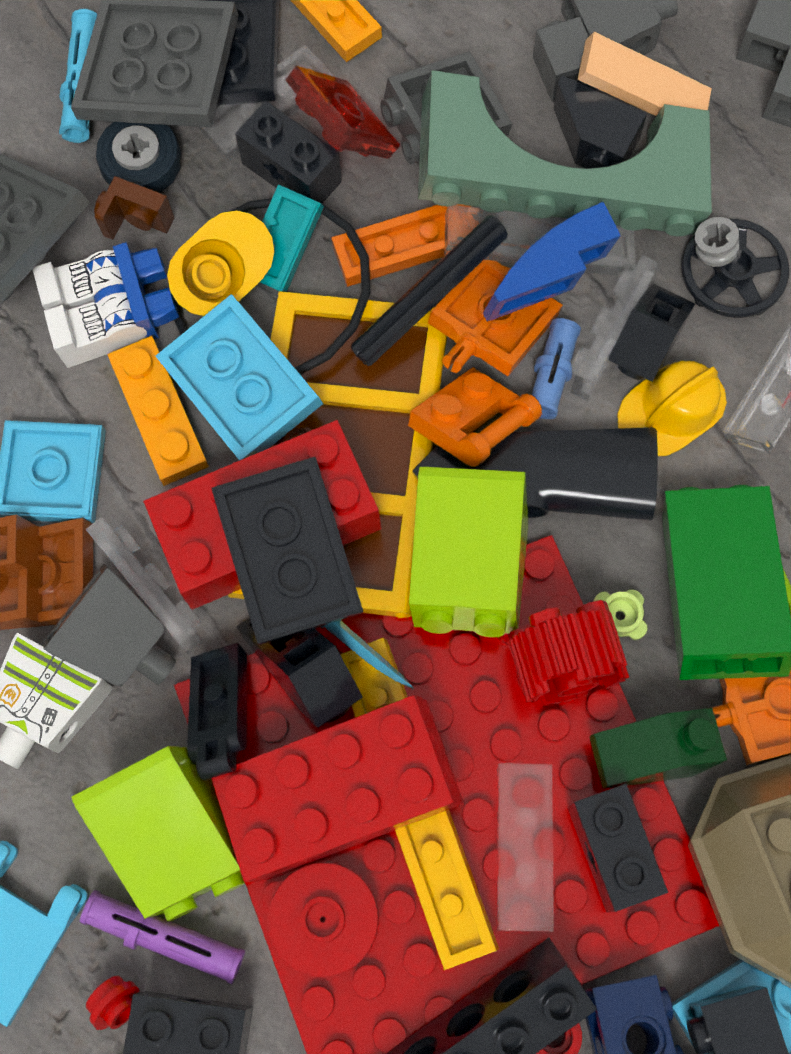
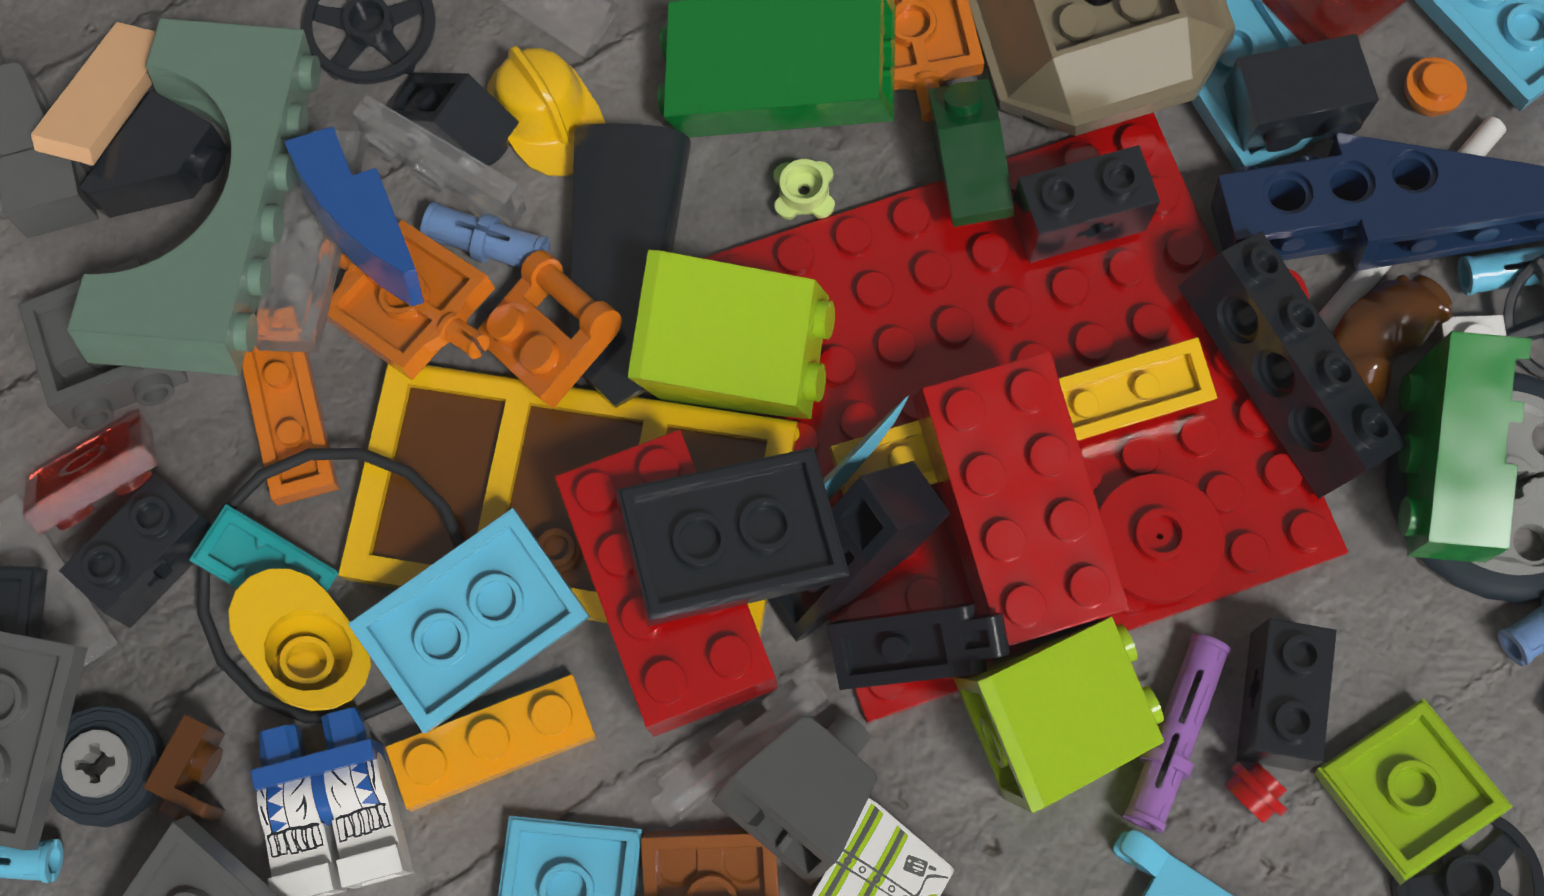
camera: 90 degrees left, 0 degrees up
(429, 290) = (373, 369): black axle -> none
(525, 848) = (1075, 309): clear tile -> none
(567, 653) = (864, 232): red brick -> none
(719, 228) = (320, 25): light grey bush -> none

